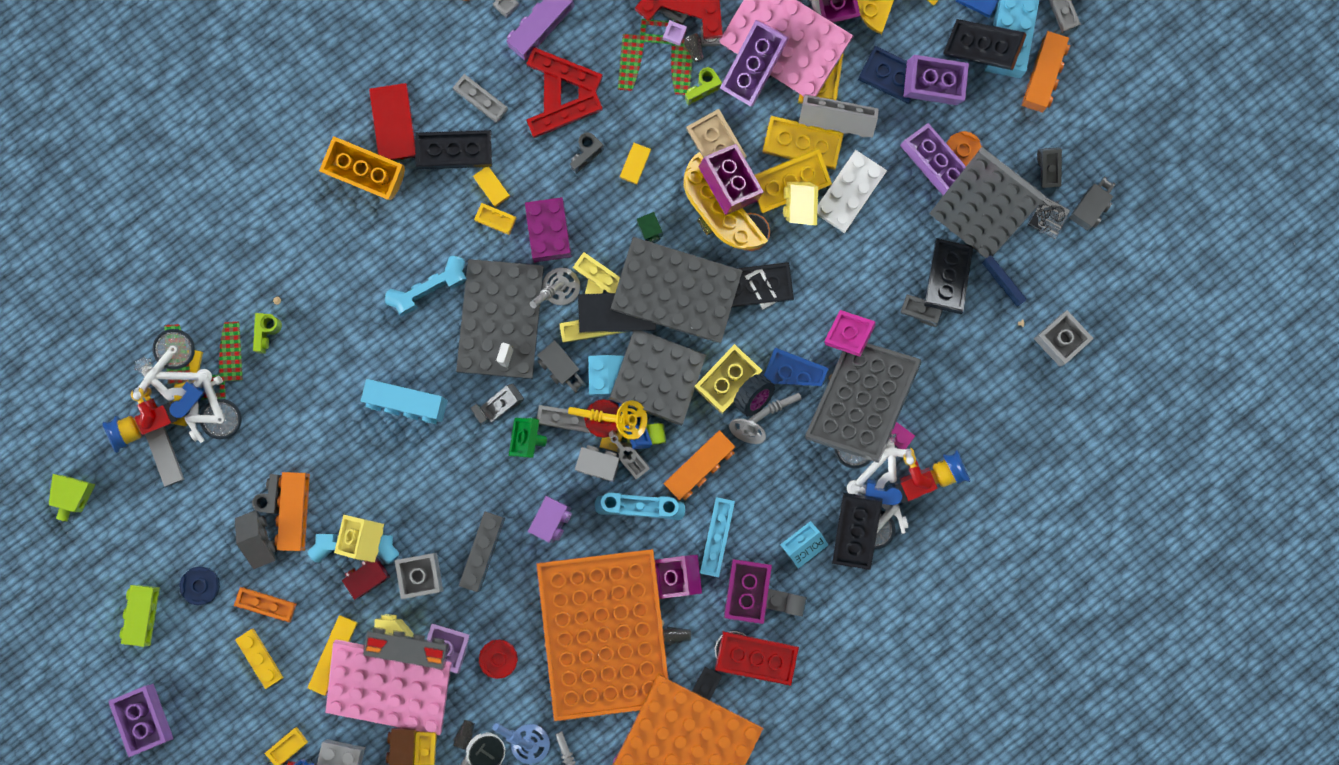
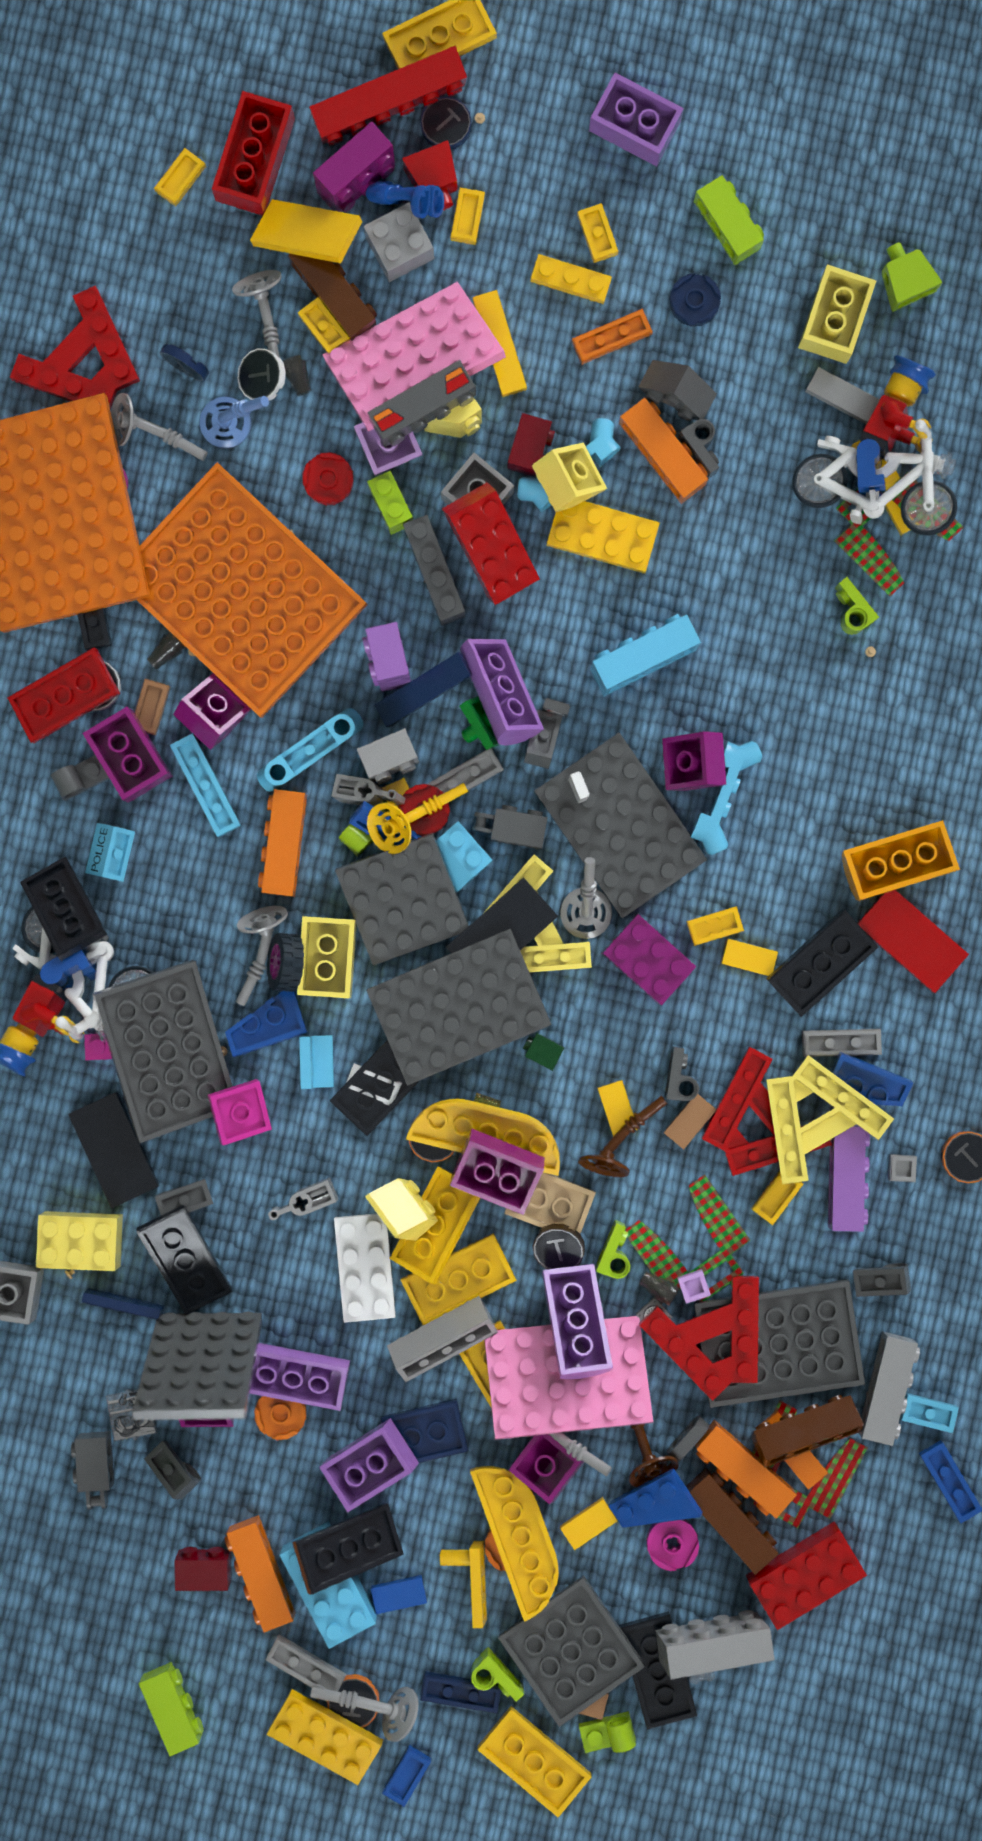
camera: 135 degrees right, 5 degrees up
(127, 506) = (837, 314): none -> light yellow brick
(220, 672) = (597, 233): none -> yellow plate
(368, 491) = (604, 535): none -> yellow plate
(428, 317) = (694, 761): none -> magenta brick
(436, 537) = (491, 543): none -> red brick
(473, 612) = (390, 502): none -> lime brick
(487, 67) = (871, 1081): none -> blue wing
(502, 448) = (501, 690): none -> medium lavender brick
(546, 486) = (423, 689): none -> dark blue tile
(551, 63) = (848, 1110): none -> light yellow plate
(587, 45) = (775, 1199): none -> yellow tile
(601, 123) = (689, 1121): none -> medium nougat tile
(666, 138) = (605, 1162): none -> reddish brown dish
(710, 611) = (151, 705): none -> medium nougat tile
(732, 113) = (558, 1247): none -> black tile
(782, 327) = (316, 1061): none -> medium azure panel
(844, 252) = (313, 1203): none -> light grey piece
(940, 372) = (113, 1150): none -> black tile
(1001, 335) = (79, 1241): none -> light yellow brick
(1076, 99) = (203, 1569): none -> dark red brick
(1154, 39) = (171, 1708): none -> lime brick

